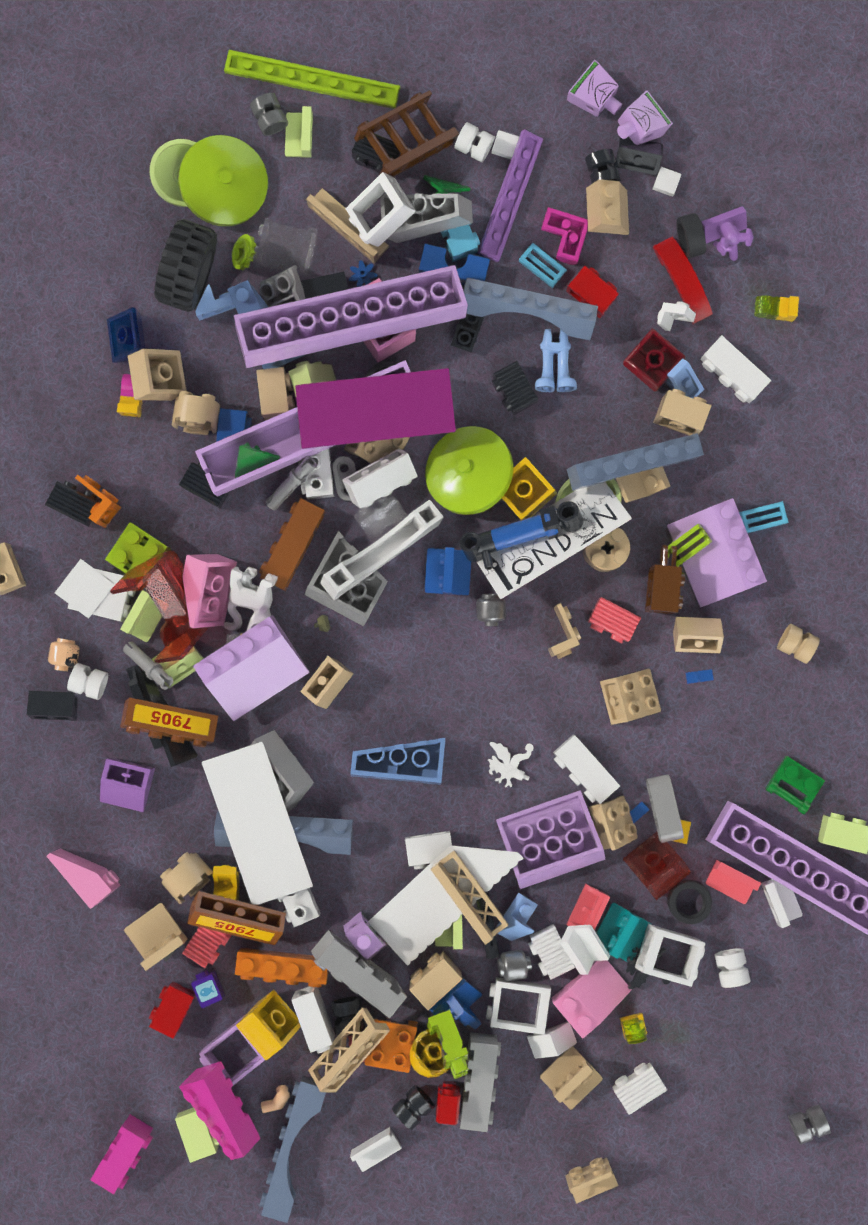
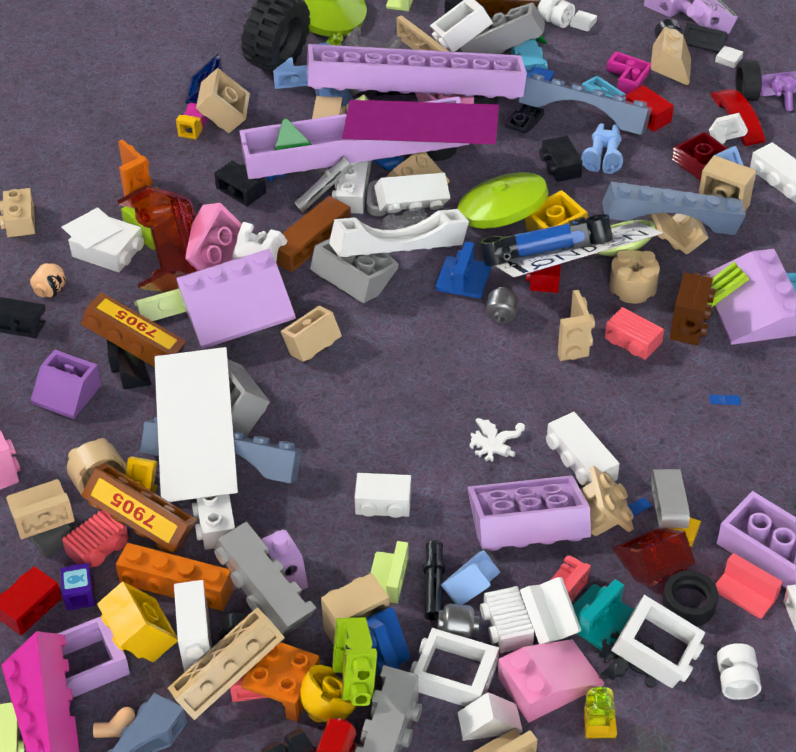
camera: 15 degrees right, 40 degrees down
(71, 502) = (103, 178): black brick -> none
(87, 681) = (63, 300): white wheel -> none
(142, 618) = (137, 264): yellowish green panel -> none
(153, 670) = (130, 290): light grey pin -> none
(196, 413) = (244, 118): tan brick -> none
(323, 623) = (322, 298): olive rock -> none
(403, 762) = (371, 411): medium blue wedge -> none
(424, 906) = (383, 532): white sticker -> none
(462, 901) = (414, 532): tan fence -> none
(510, 196) = (583, 45): medium lavender tile -> none
(630, 696) = (639, 392): tan bracket -> none
(698, 635) = (726, 353): tan brick -> none

